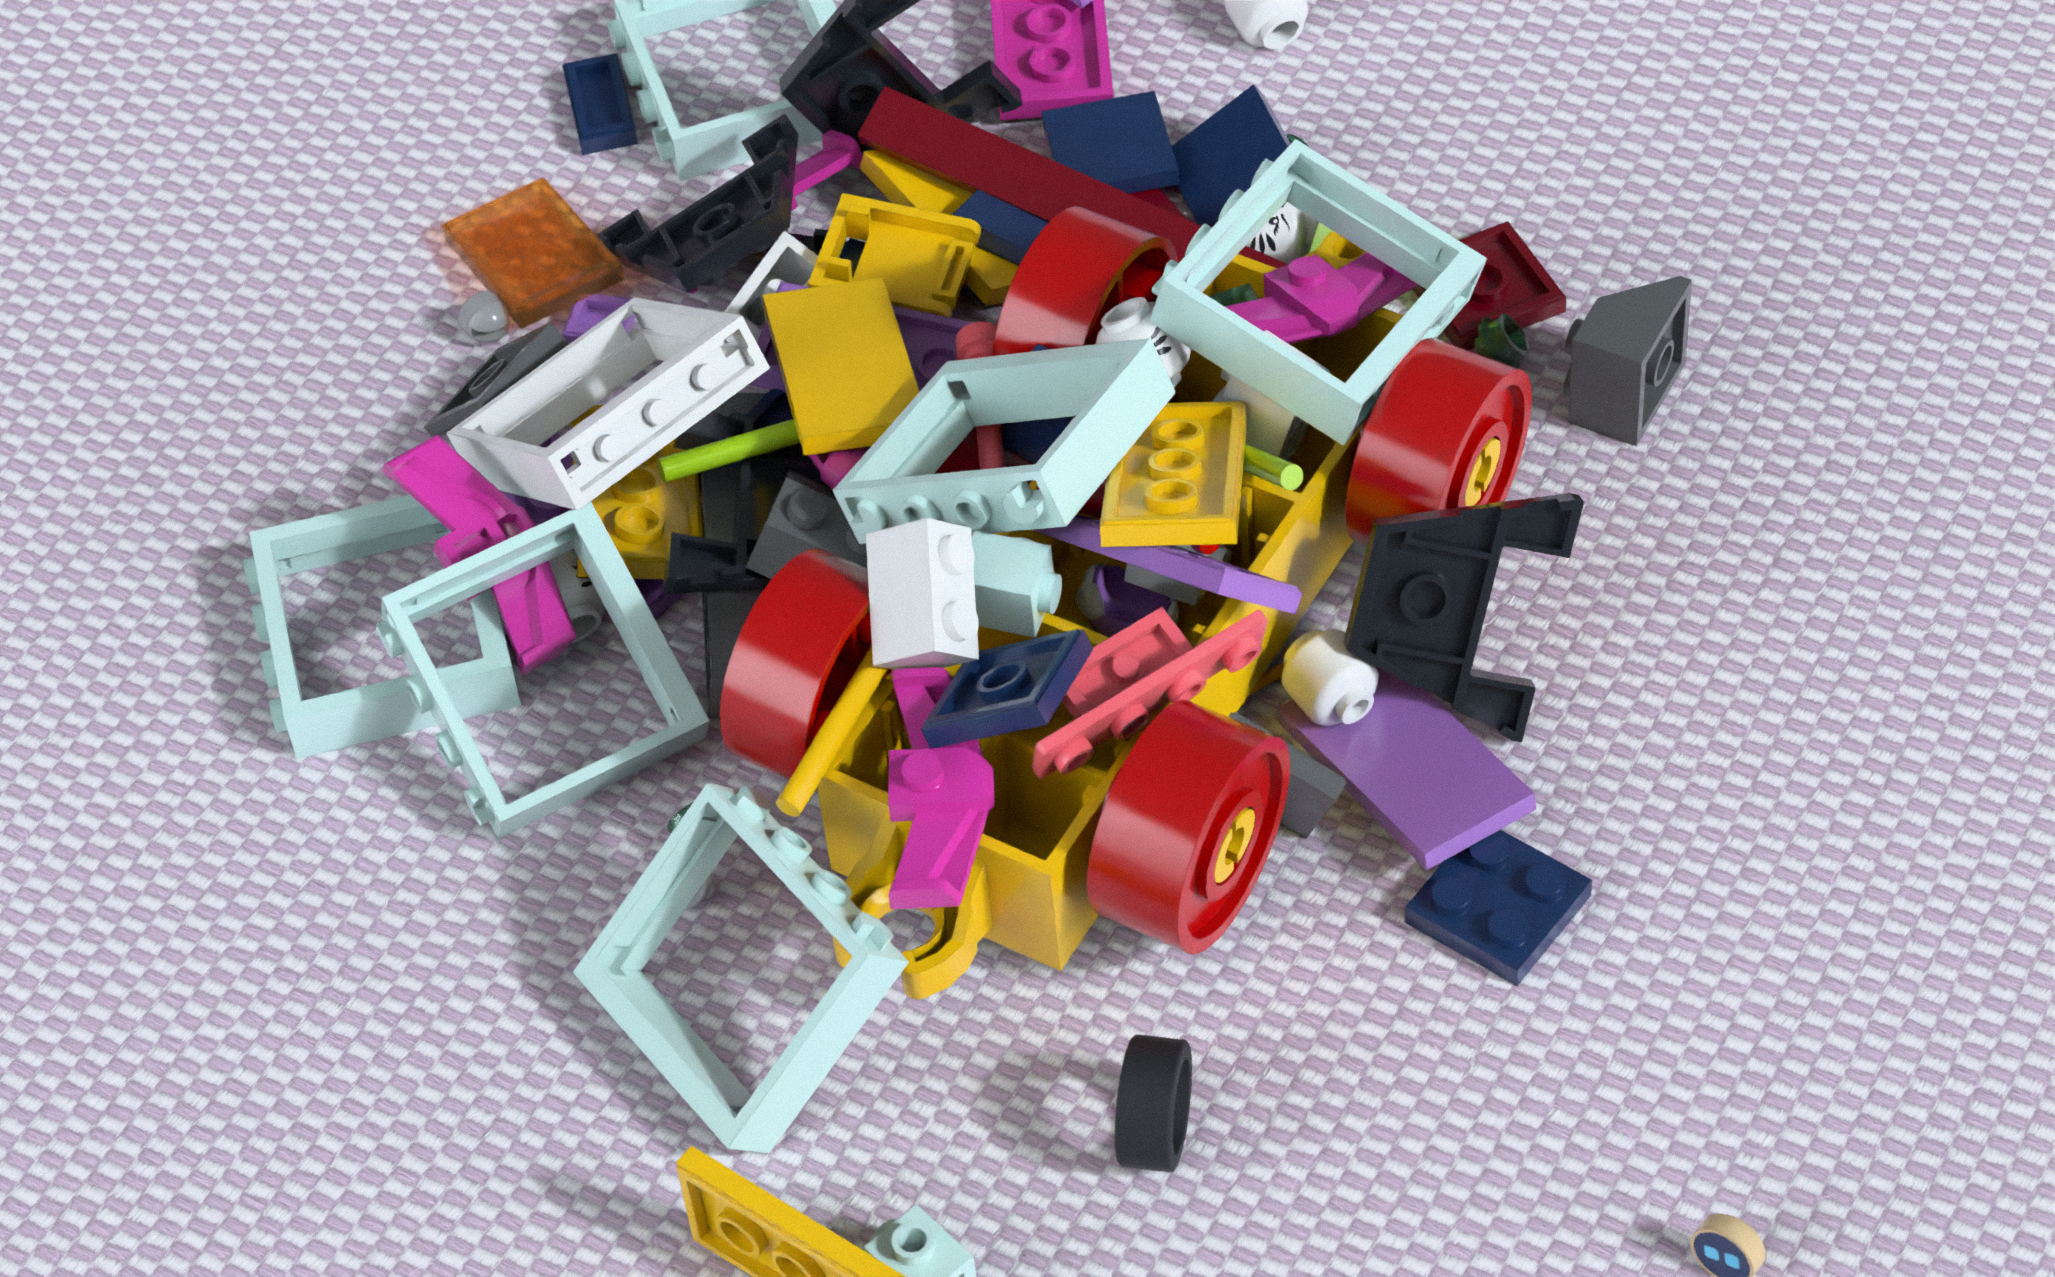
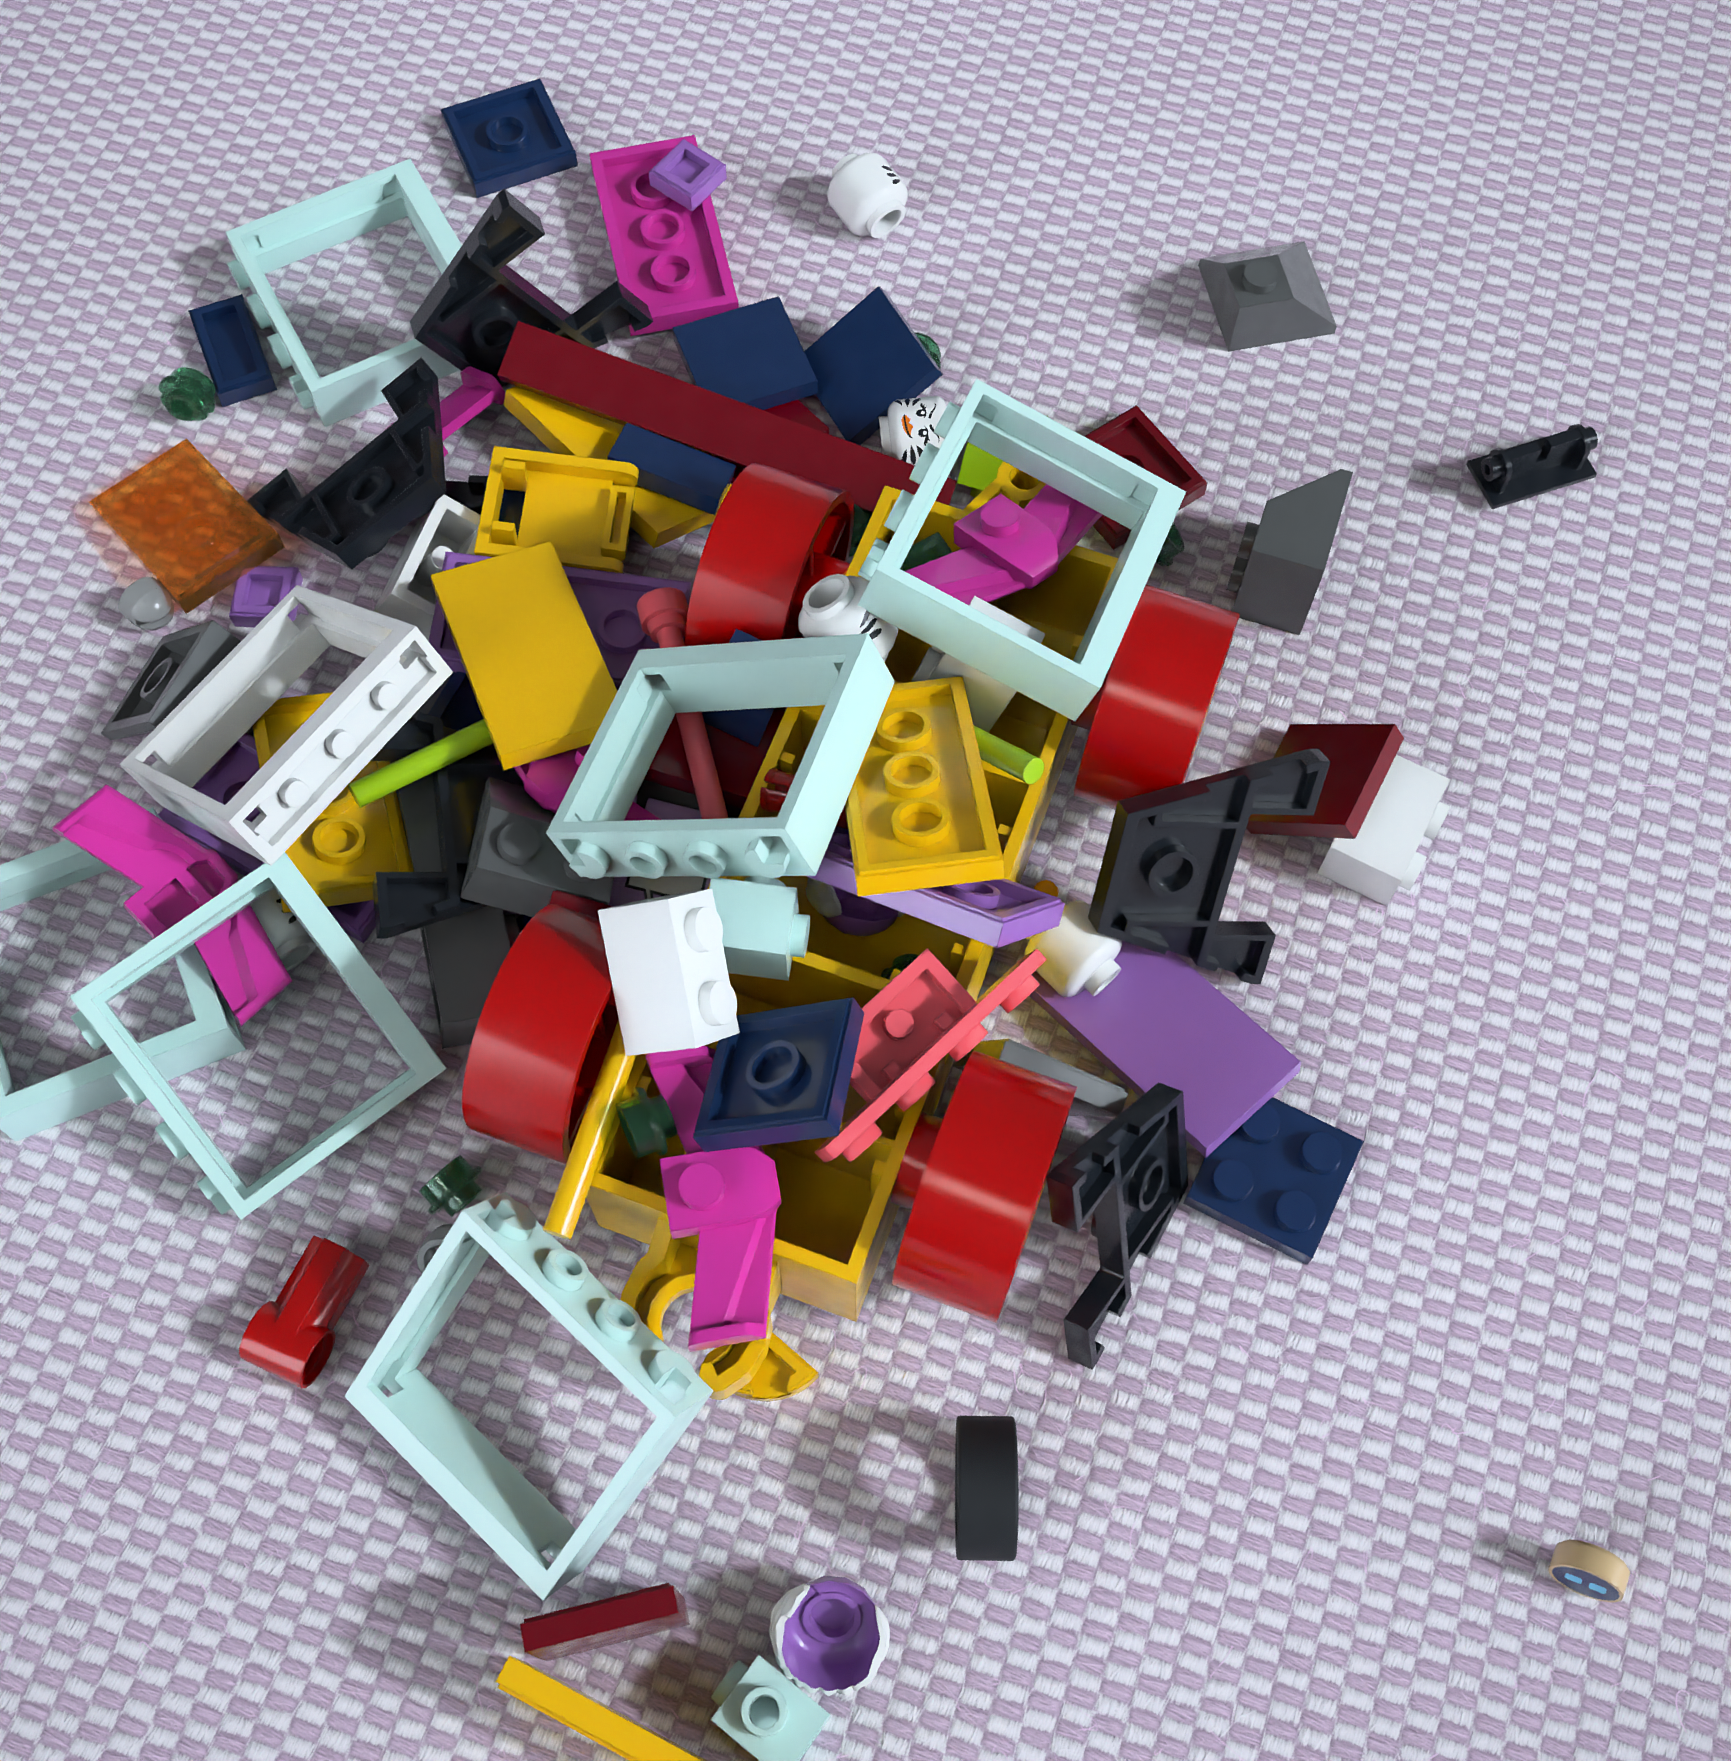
camera: 15 degrees left, 15 degrees up
(538, 924) = (296, 1330): none -> red piece
(551, 138) = (188, 394): none -> clear green plate
(792, 1156) = (604, 1622): none -> dark red tile
(882, 725) = (646, 1123): none -> clear green plate
(971, 1011) = (779, 1375): none -> yellow tile
(988, 1208) = (829, 1635): none -> medium lavender hair
(1348, 880) = (1134, 1182): none -> black wing
(1617, 562) = (1357, 769): none -> dark red tile
(1672, 132) = (1266, 296): none -> dark grey slope
(1675, 614) = (1387, 842): none -> white brick
(1908, 312) = (1535, 466): none -> black hinge

